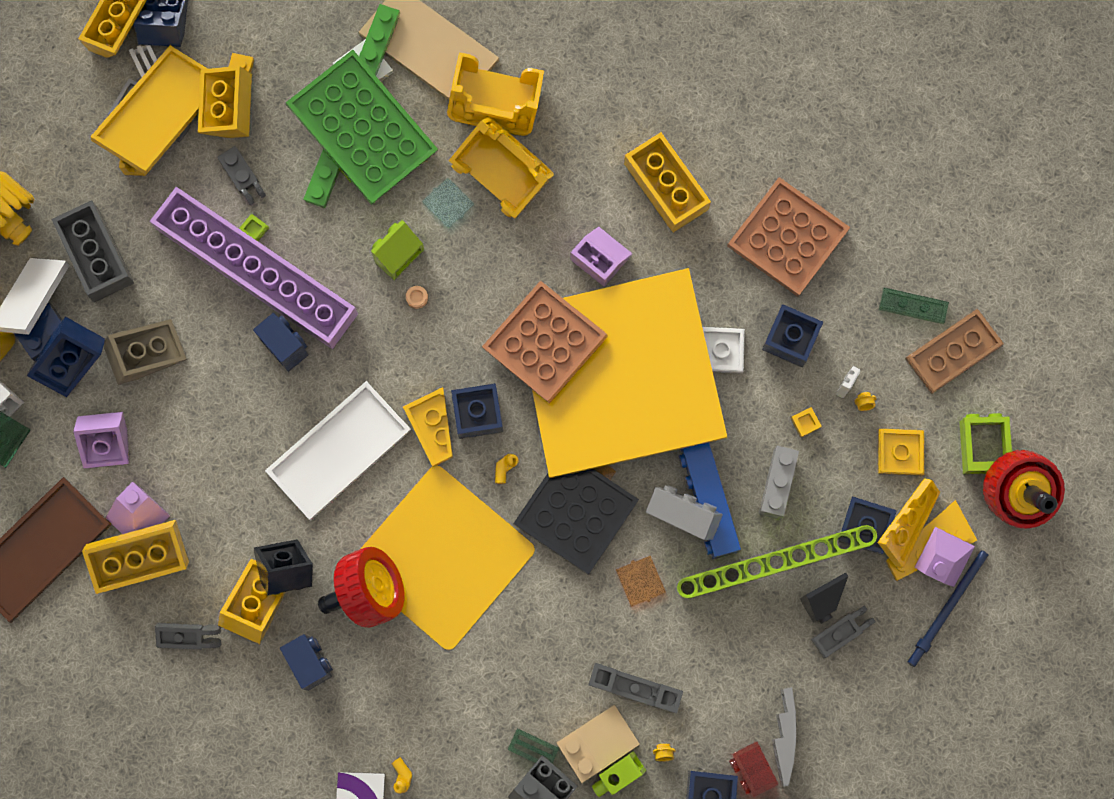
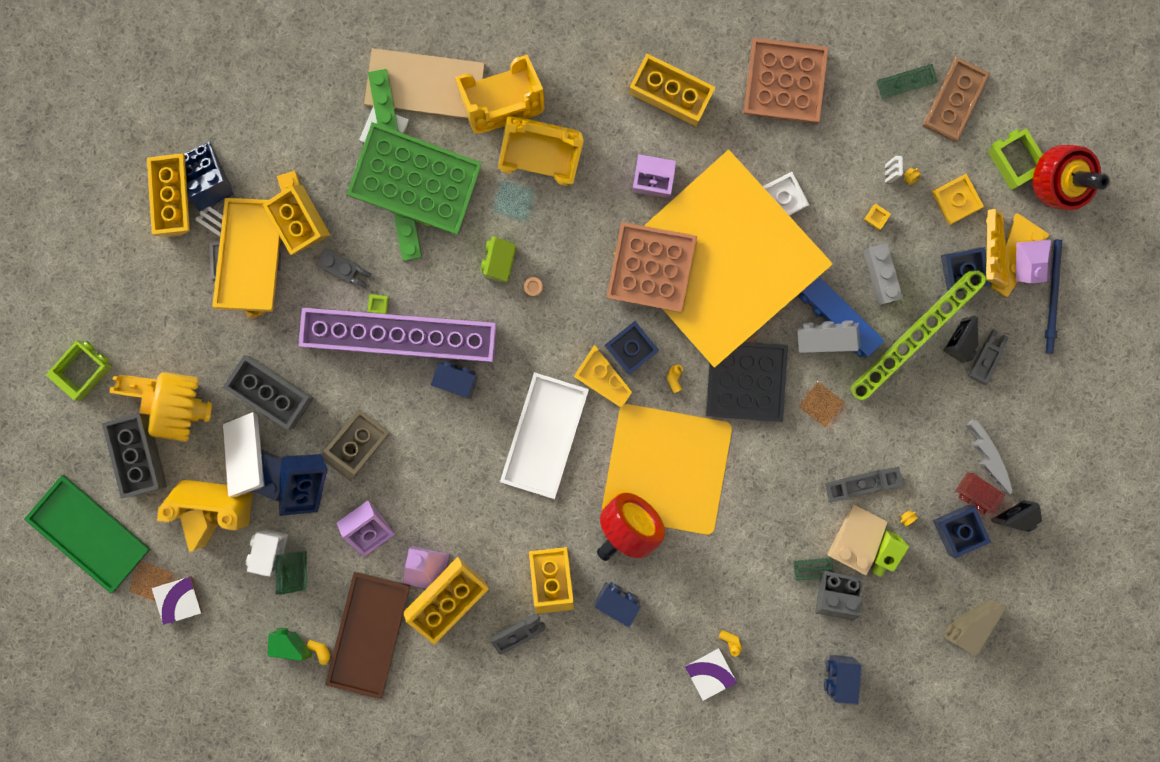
camera: 30 degrees left, 10 degrees up
(283, 567) = (558, 545): black slope -> none
(792, 335) = (832, 156): dark blue brick -> none

